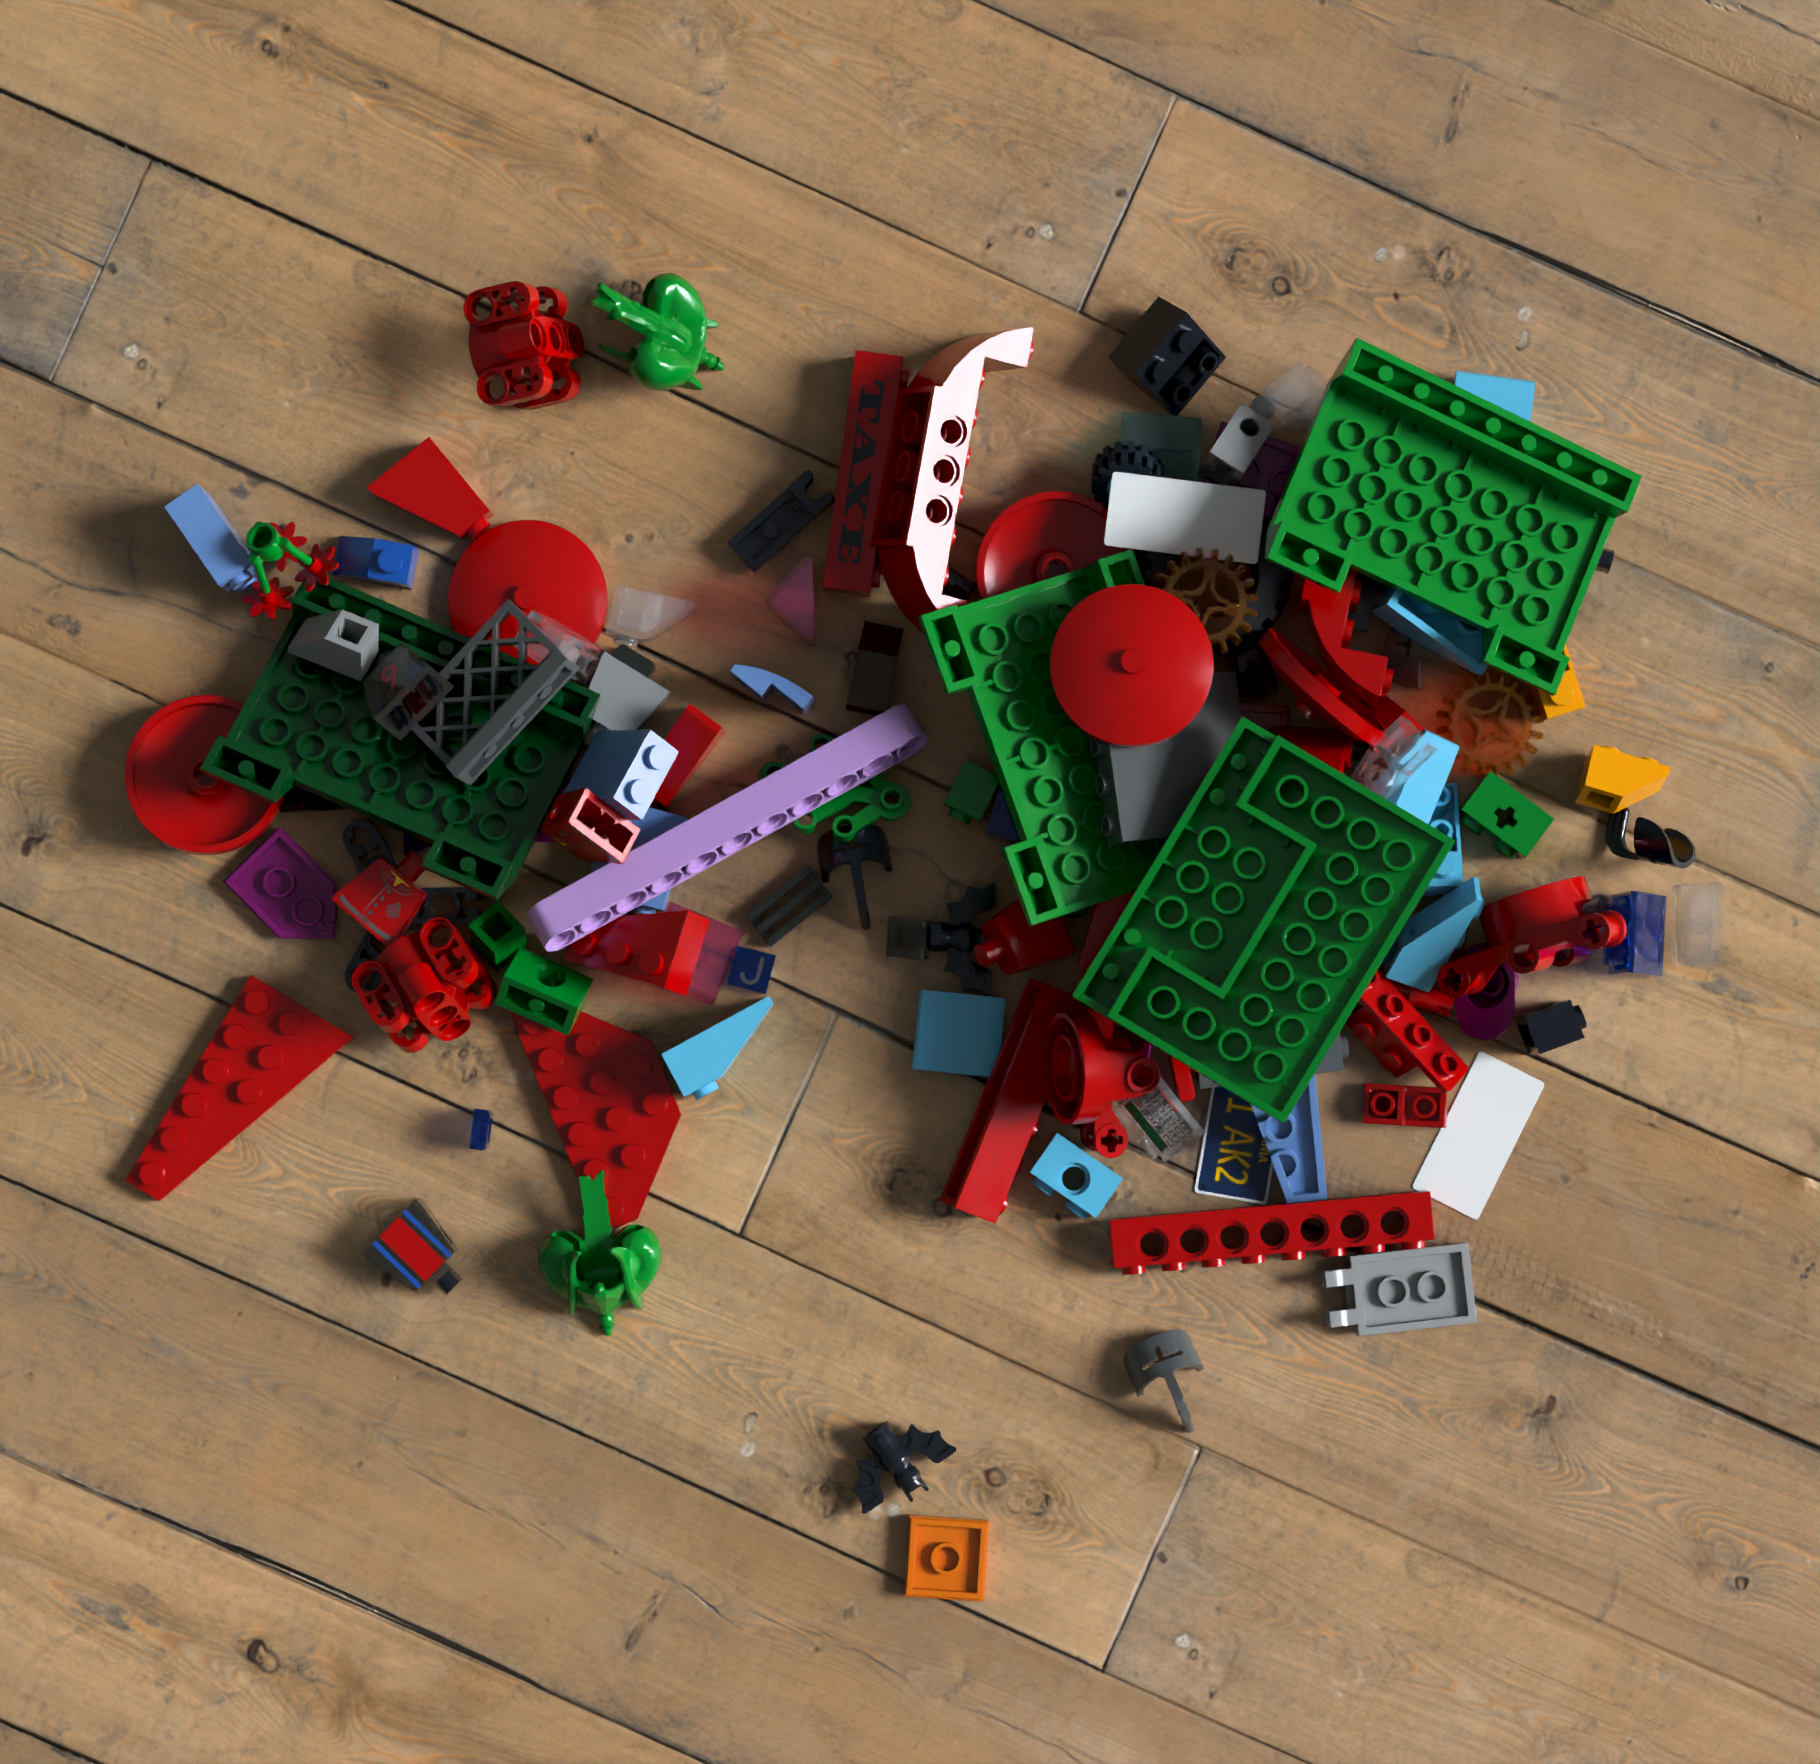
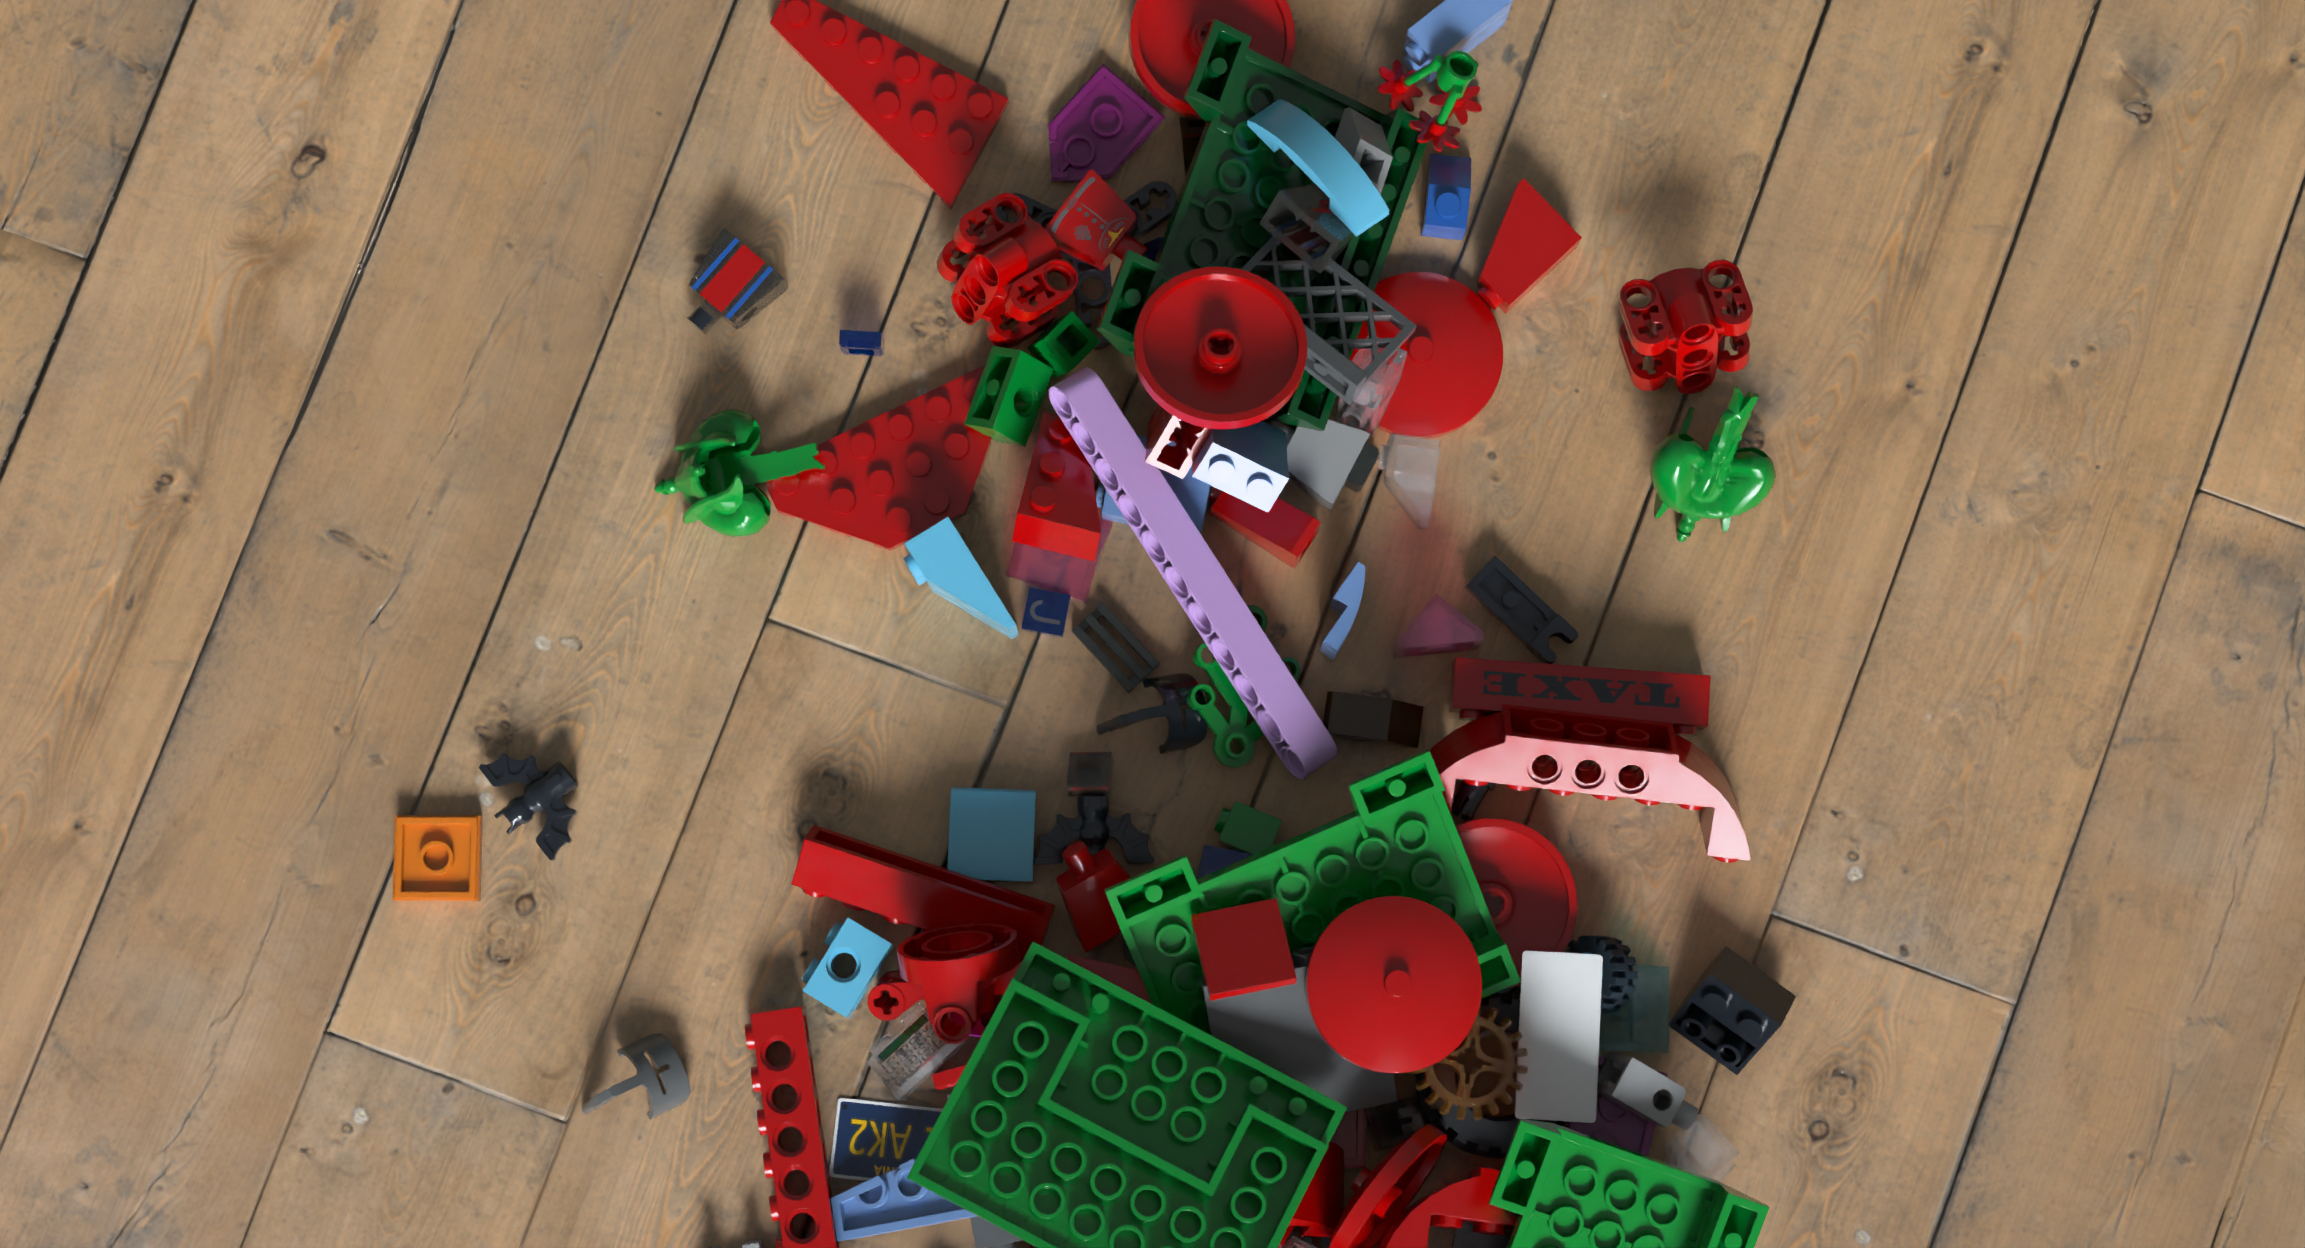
camera: 90 degrees right, 5 degrees down
(344, 675) = (1323, 161): none -> medium azure slope
(523, 784) = (1220, 347): none -> red dish
(1090, 802) = (1243, 949): none -> red tile

